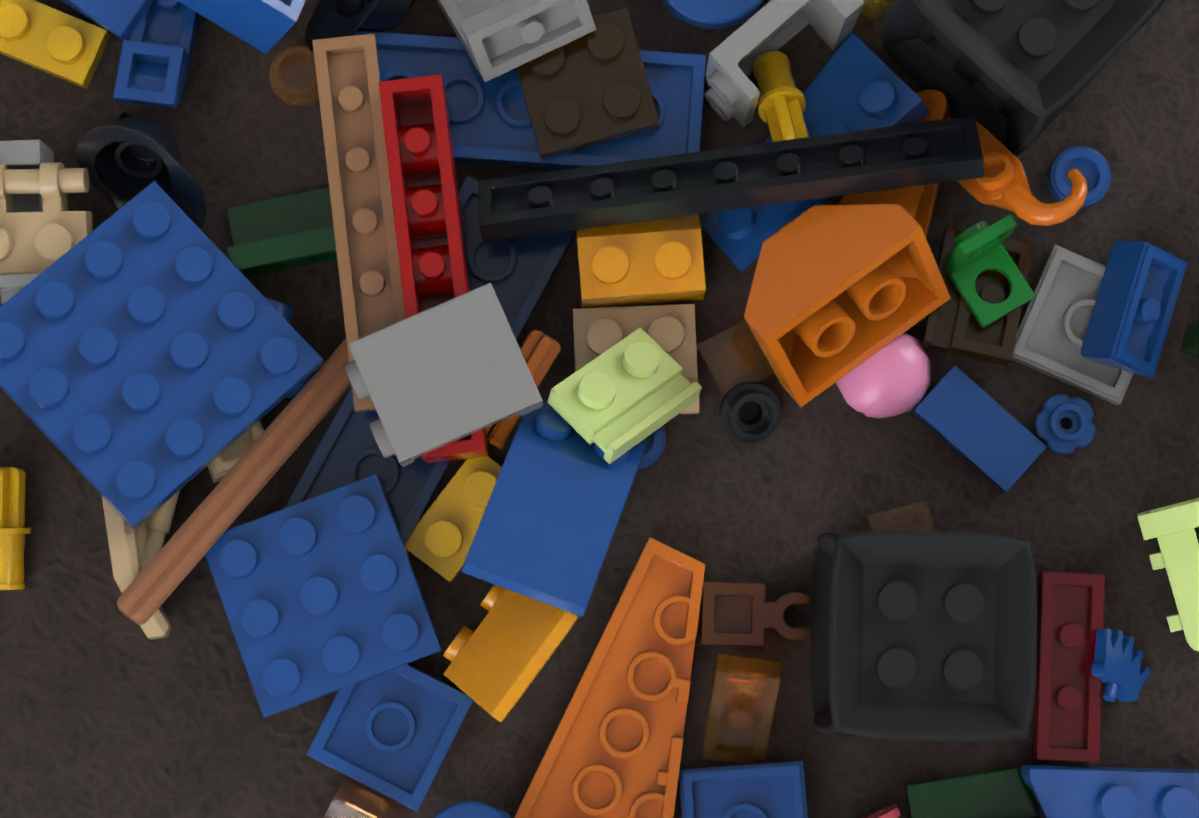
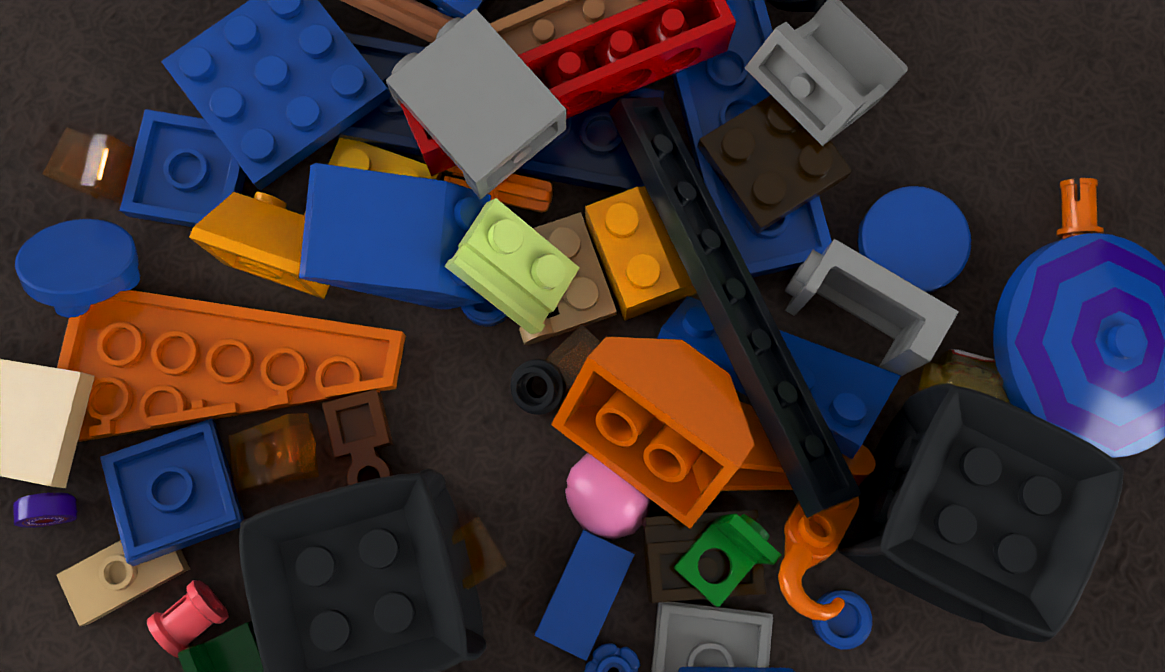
camera: 70 degrees right, 5 degrees down
(780, 101) = (817, 328): yellow axle -> none

